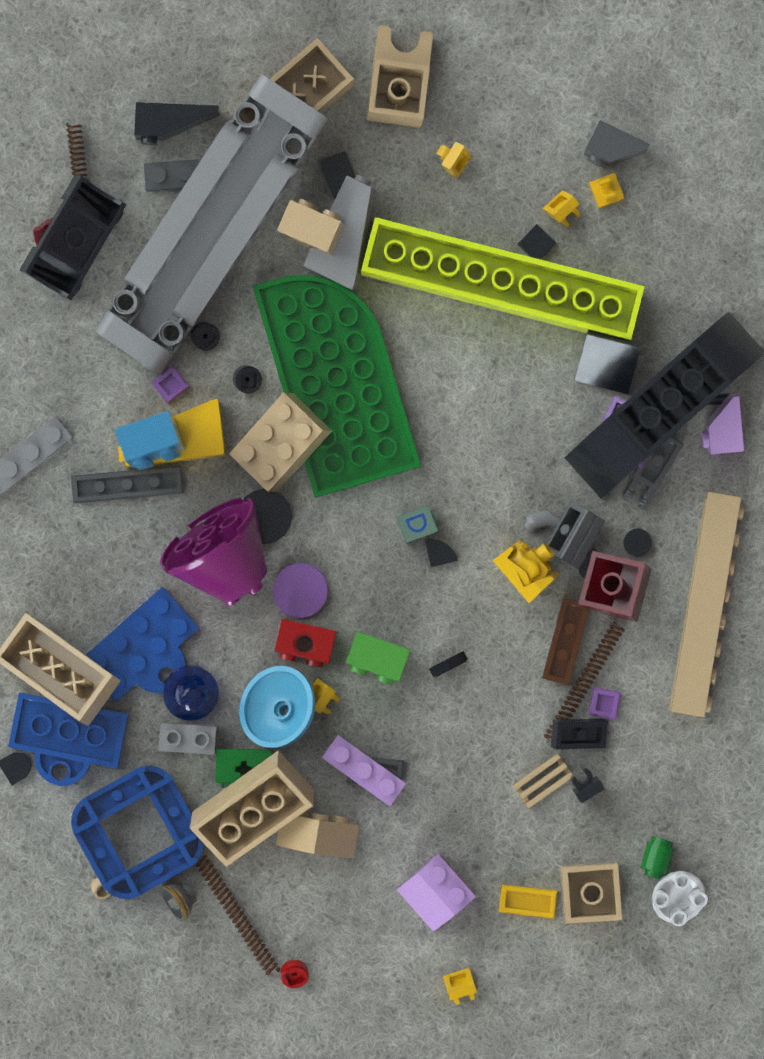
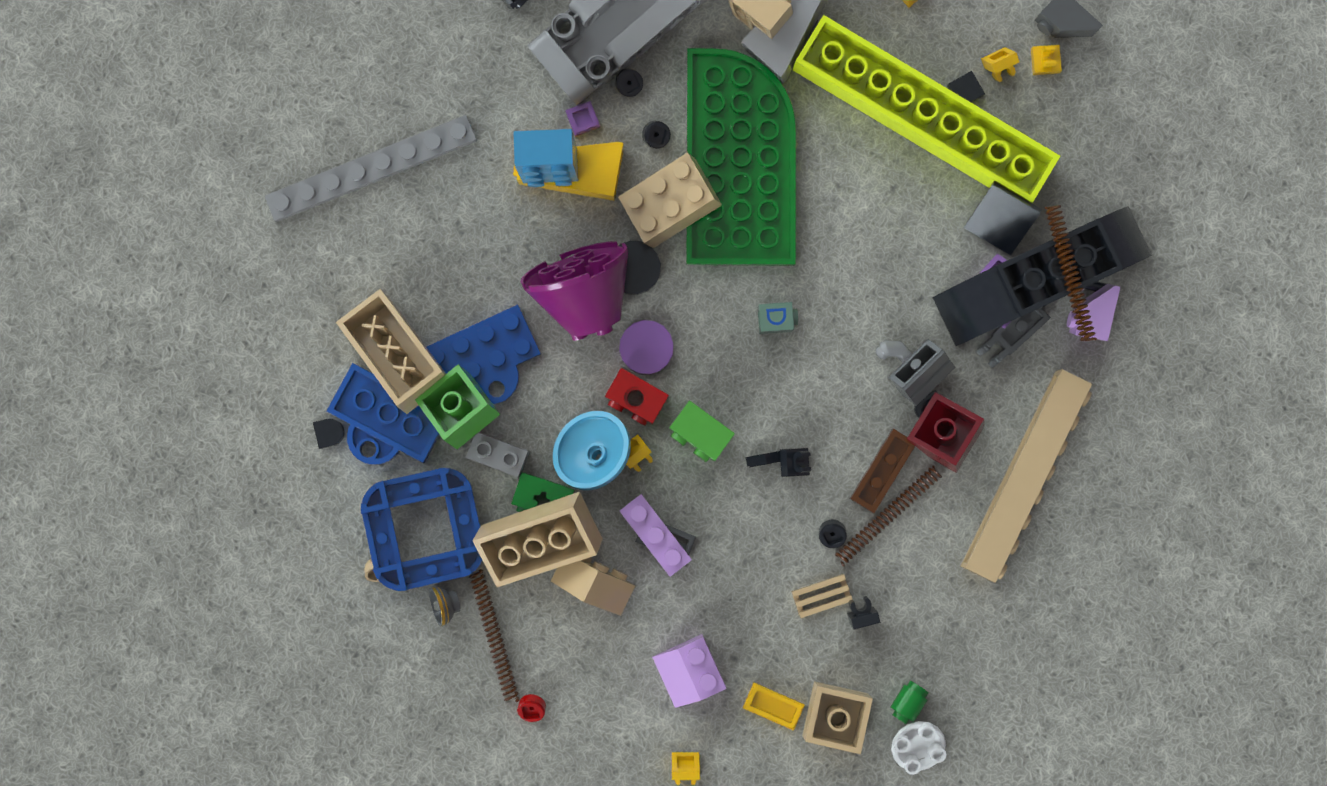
camera: 15 degrees right, 0 degrees up
(127, 484) = (514, 199): dark grey tile -> none
(136, 704) = (457, 407): none -> bright green brick
(190, 692) = (518, 412): clear blue plate -> none
(439, 552) = (788, 351): black tile -> none
(477, 659) = (794, 462): none -> black tile
(528, 568) = (870, 389): yellow brick -> none
(535, 717) = (832, 533): none -> black tile
(579, 733) = (870, 562): black plate -> none
(604, 703) = (902, 540): medium lavender tile -> none
(637, 542) = (978, 397): black tile -> none
(681, 403) = (1069, 274): none -> reddish brown piece

